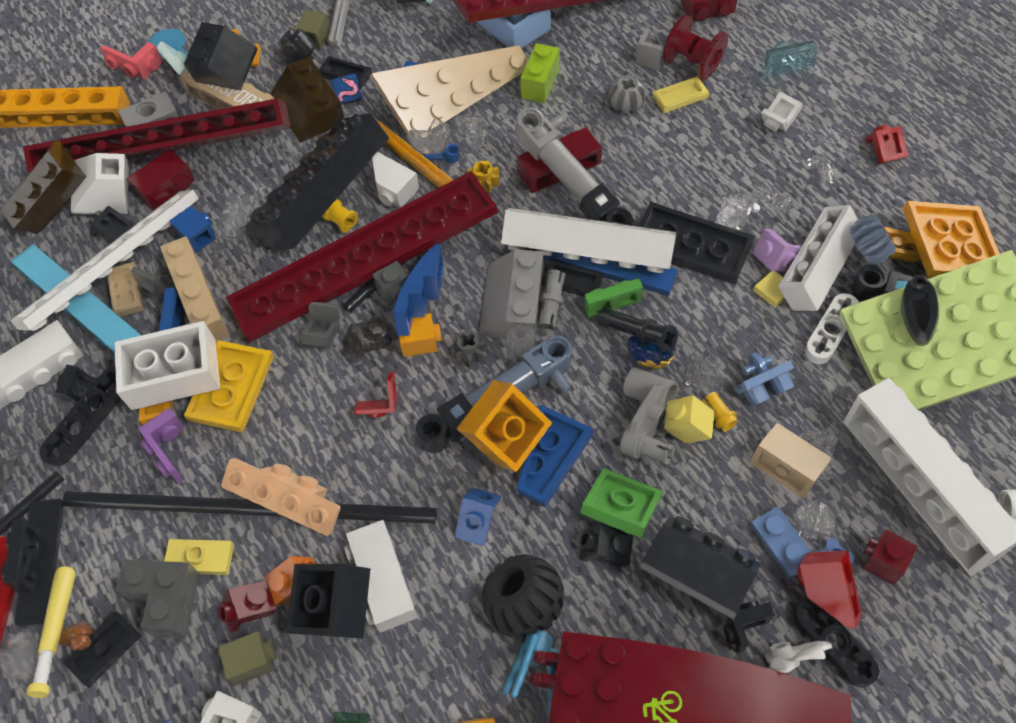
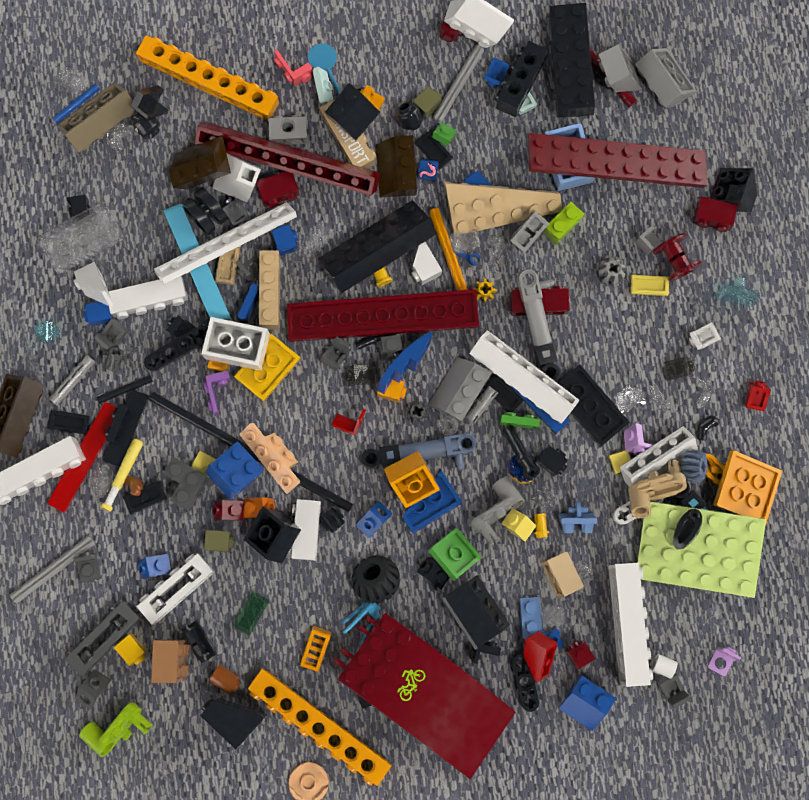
camera: 15 degrees right, 20 degrees up
(66, 234) = (204, 211): none -> black wheel
(230, 538) = (234, 471): none -> blue brick
(349, 49) = (444, 134): none -> bright green plate
(414, 542) = (332, 520): none -> black gear
(503, 91) = (529, 231): none -> light grey brick
(689, 322) = (553, 461): none -> black brick
(775, 155) = (679, 368): none -> clear smoke bracket
(786, 657) = (494, 677): white plate -> none
(843, 285) = (655, 488): none -> tan piece
(852, 197) = (705, 425): none -> black arm
(947, 623) = (587, 703): none -> blue slope

